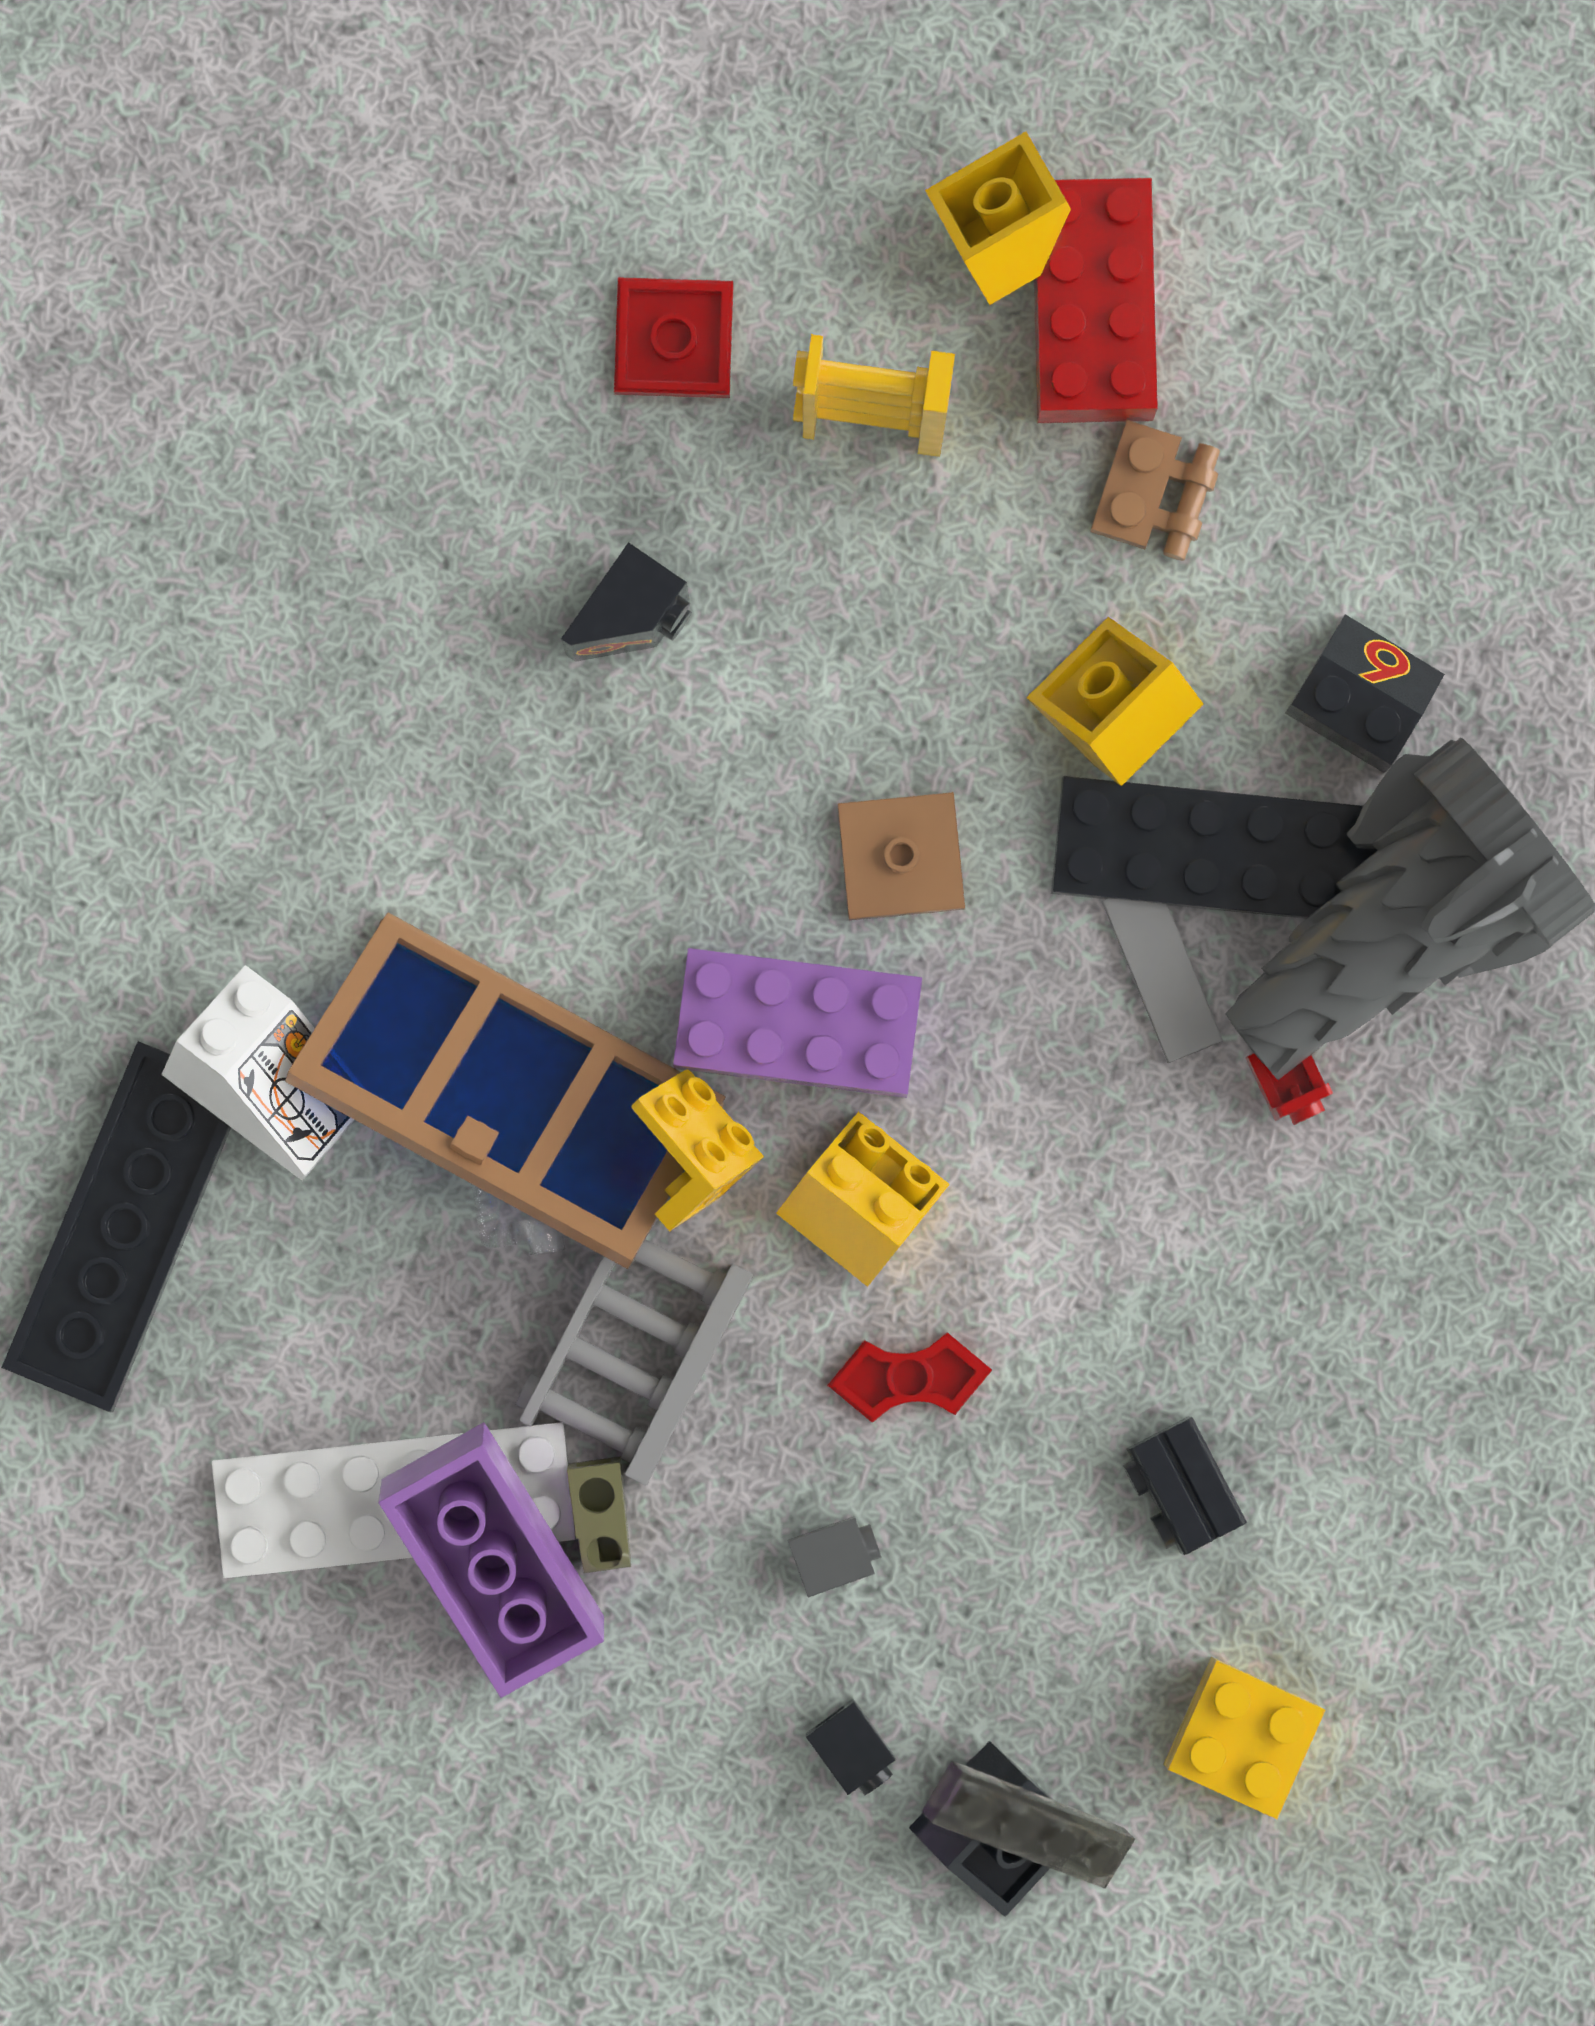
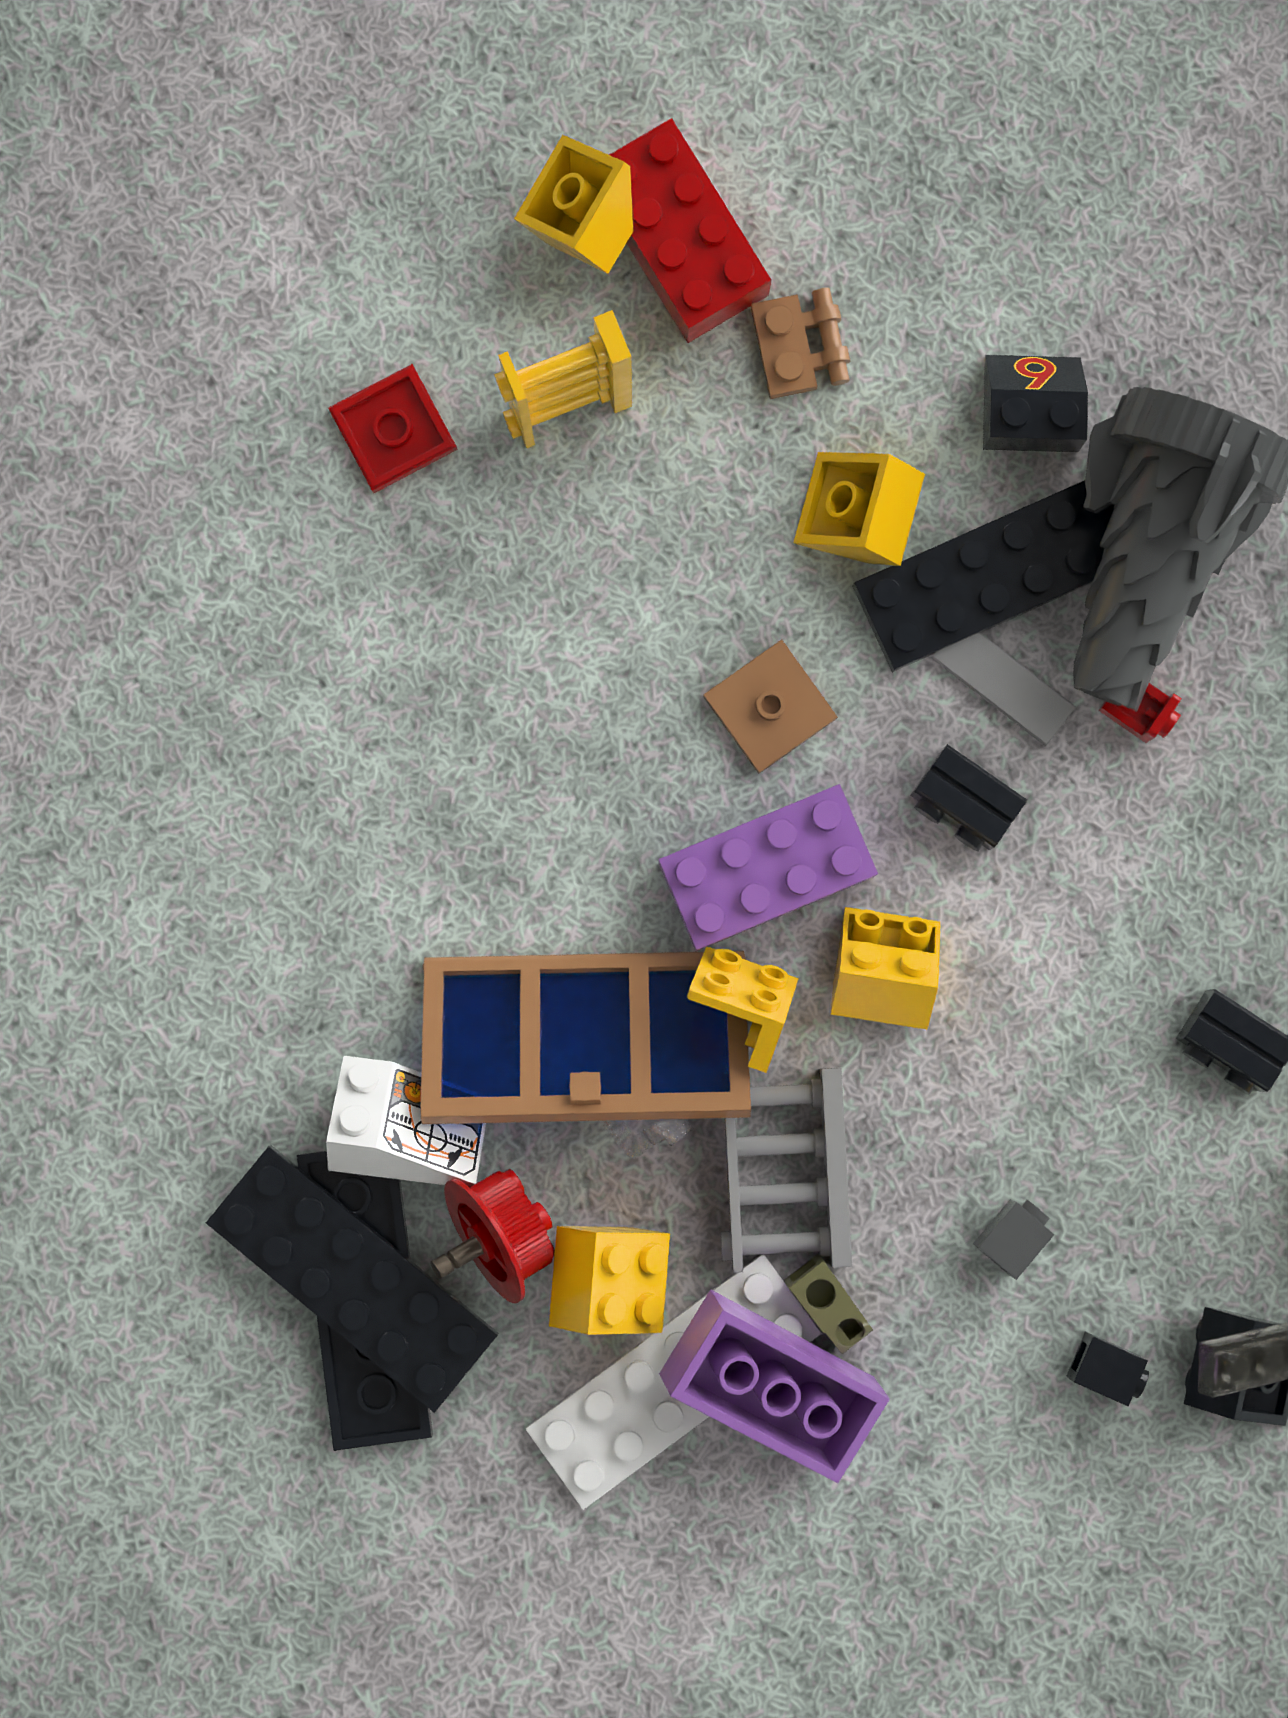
camera: 30 degrees left, 0 degrees up
(122, 1200) = (352, 1278): none -> black plate
(299, 1238) = (498, 1233): none -> red piece
(386, 1353) = (609, 1280): none -> yellow brick
(629, 609) = (475, 638): black slope -> none
(882, 1379) = (973, 1091): red tile -> none
(1050, 1070) = (967, 799): none -> black brick

